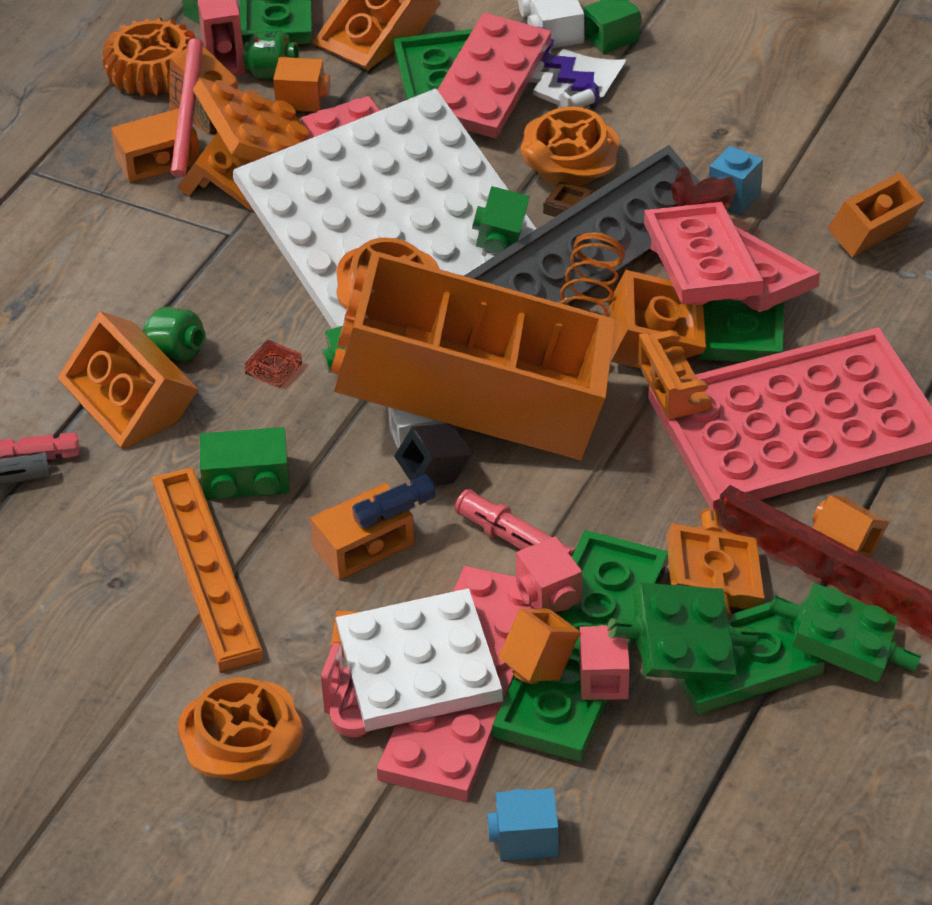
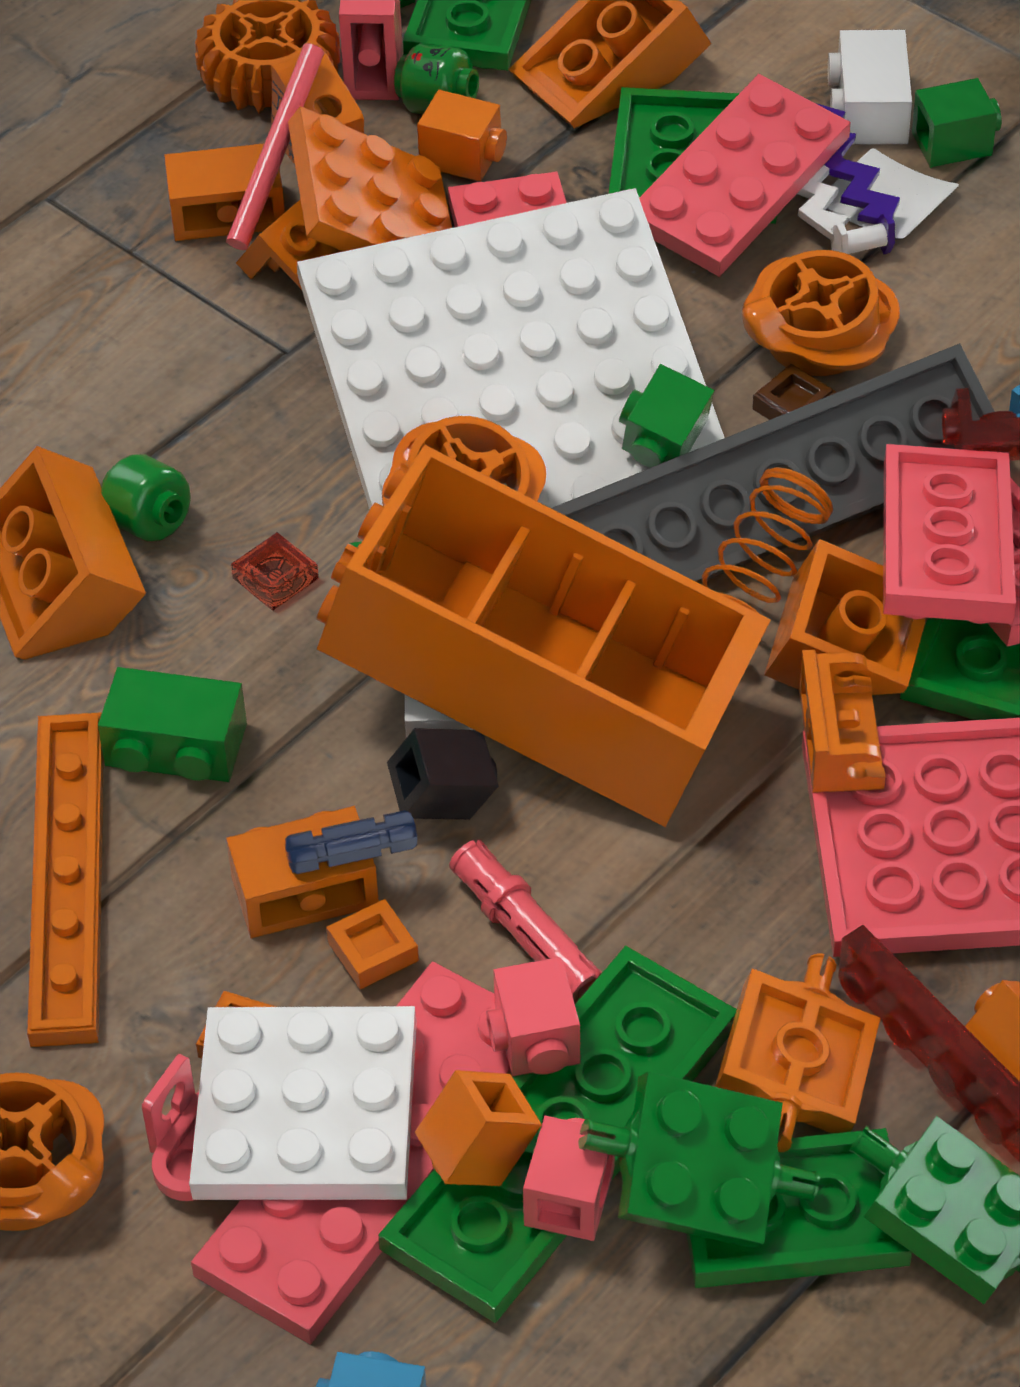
camera: 15 degrees right, 5 degrees up
(422, 563) = (372, 944): none -> orange plate

